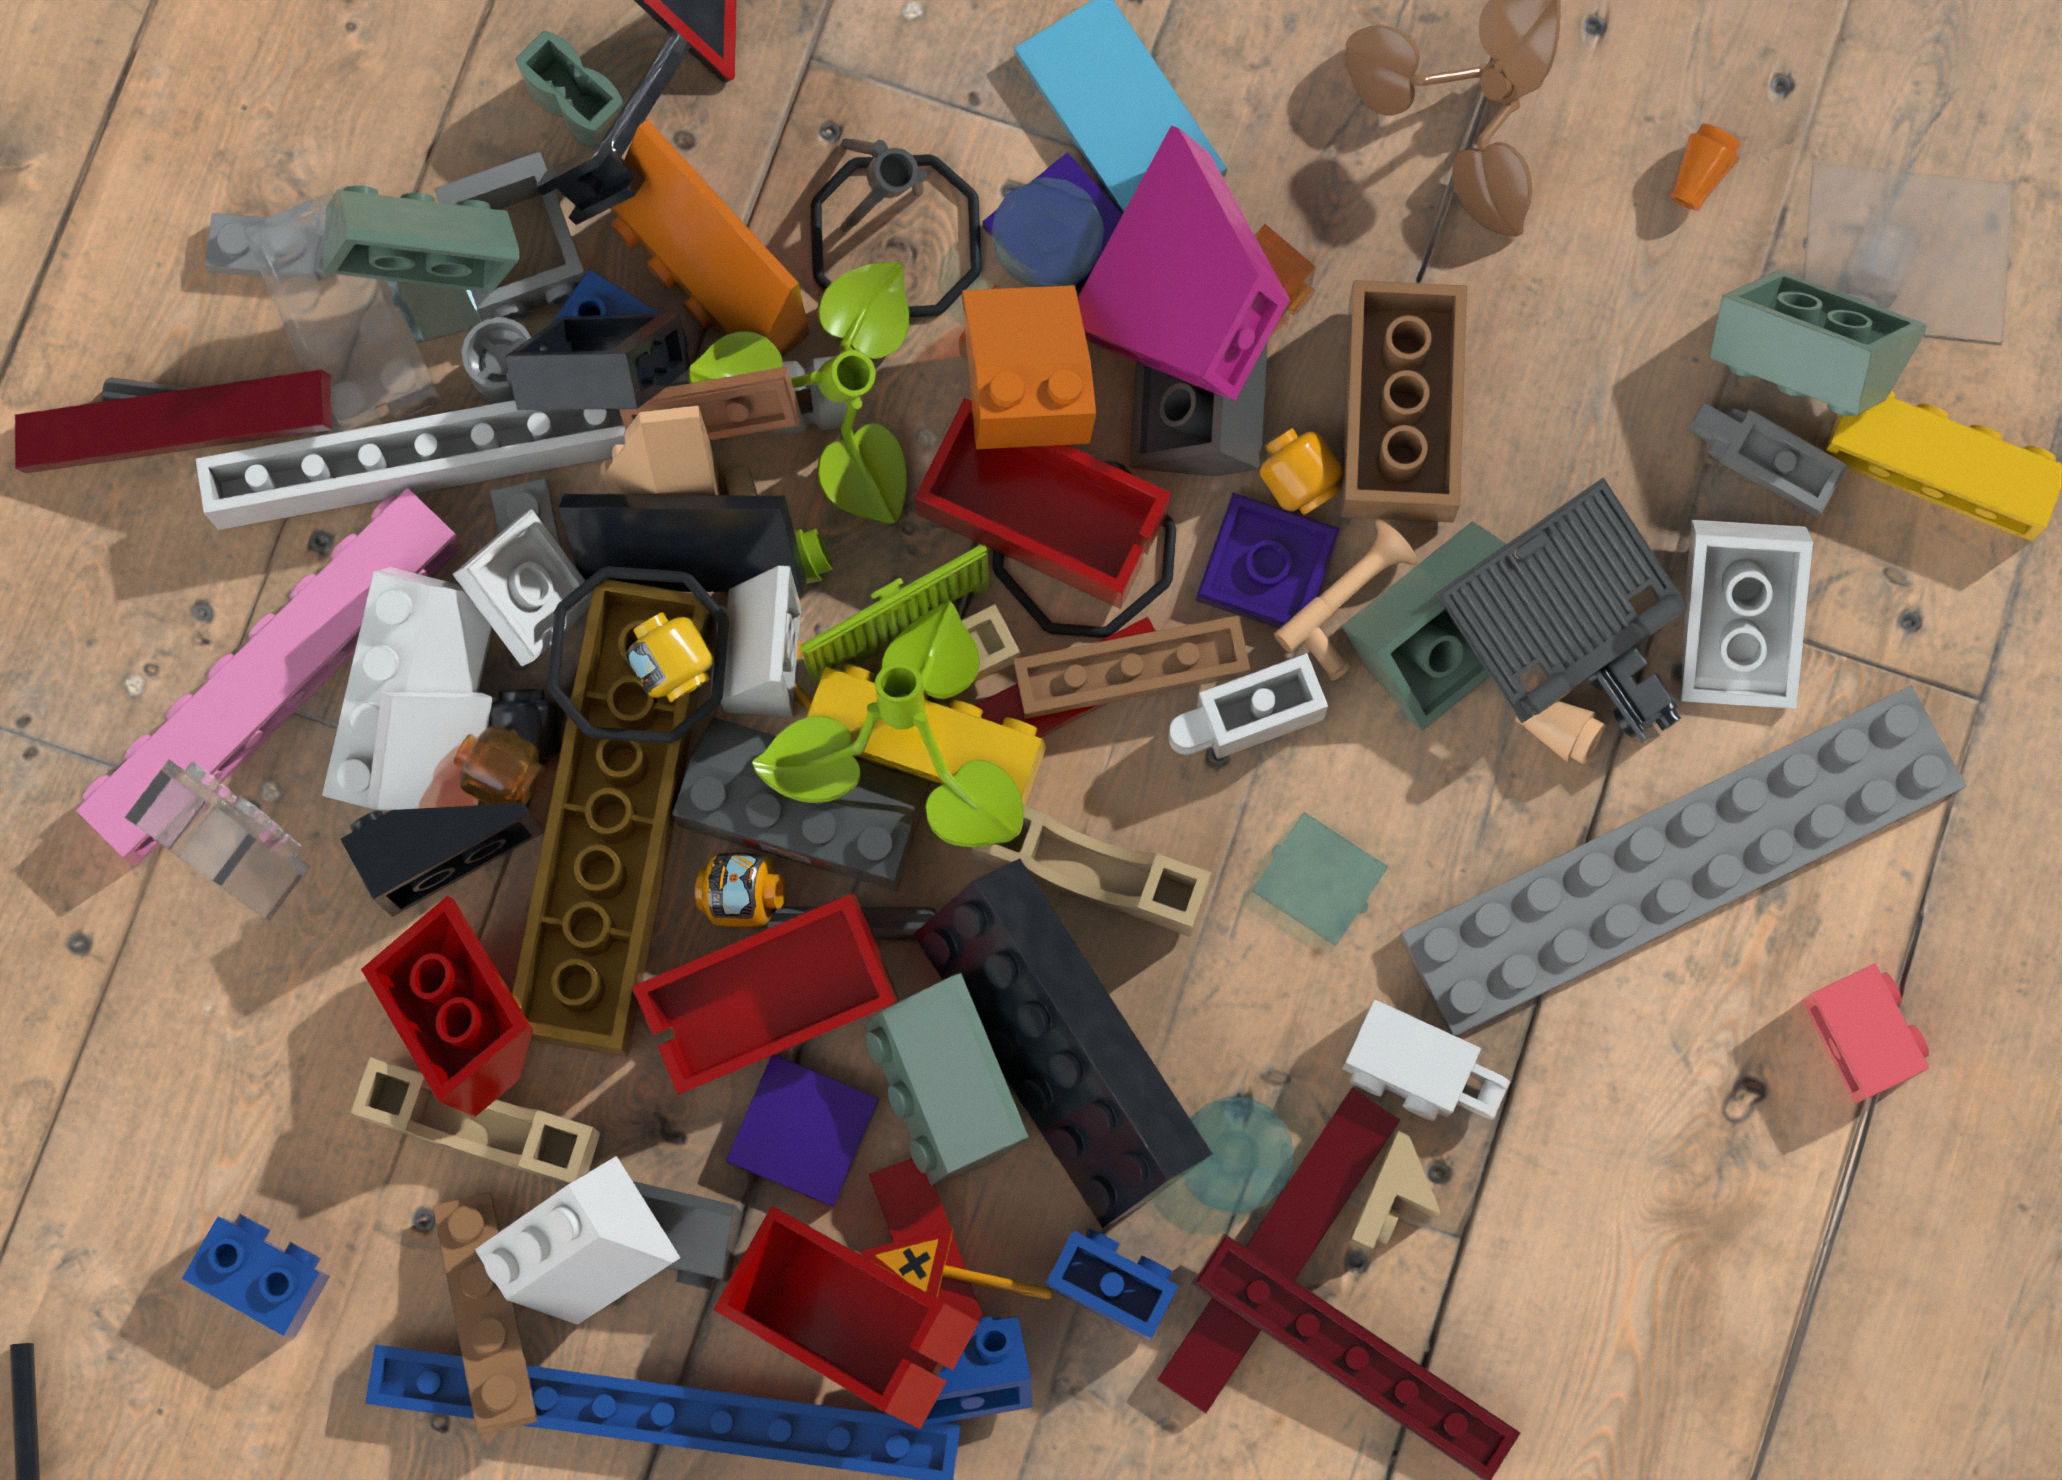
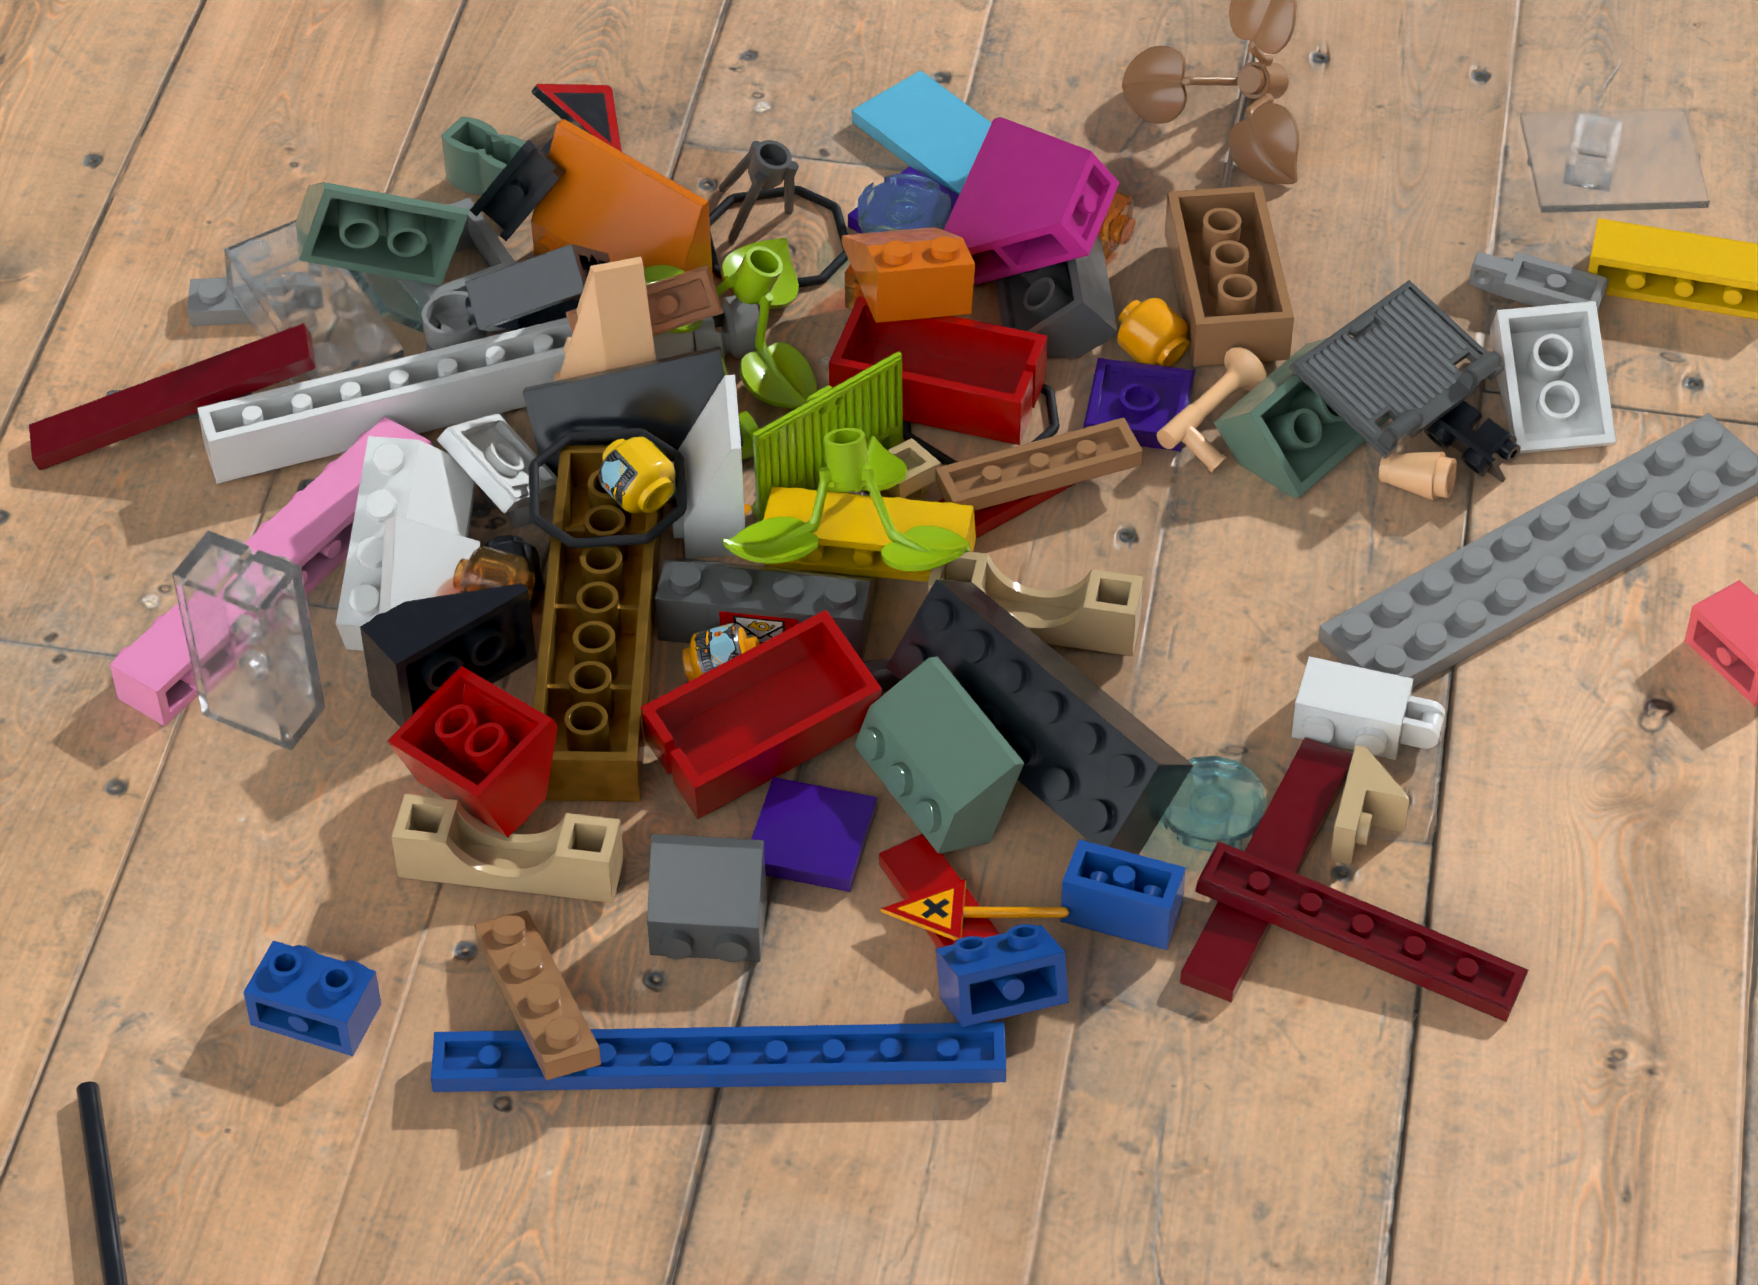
camera: 10 degrees left, 30 degrees down
(579, 1247) = (621, 904): white slope -> none
(845, 1317) = (883, 921): red piece -> none
(1251, 710) = (1151, 482): white brick -> none
(1320, 879) = (1237, 606): clear light blue piece -> none
(1704, 165) = (1434, 115): orange cone -> none
(1814, 341) = (1554, 194): sand green slope -> none

